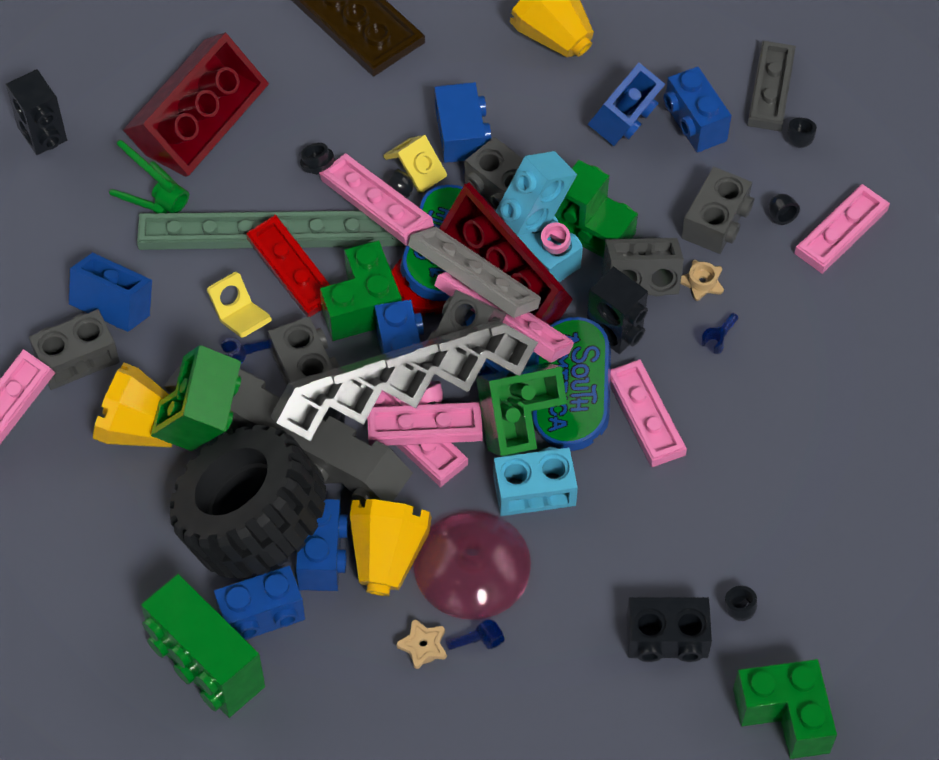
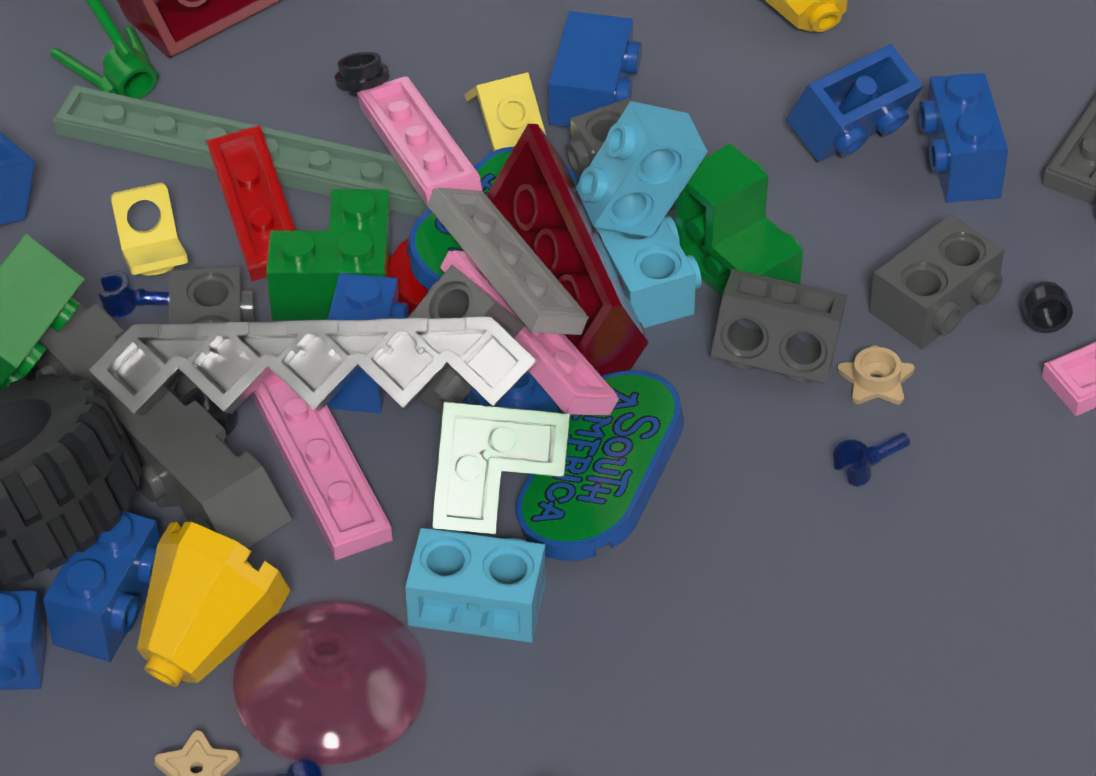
camera: 20 degrees right, 10 degrees down
(401, 183) = (468, 133): black hinge -> none
(425, 424) = (345, 459): bright pink tile -> none
(432, 394) = (372, 420): bright pink hinge -> none
(559, 233) = (660, 239): bright pink hinge -> none
(618, 308) = (712, 371): black brick -> none
(646, 413) = (701, 540): bright pink tile -> none

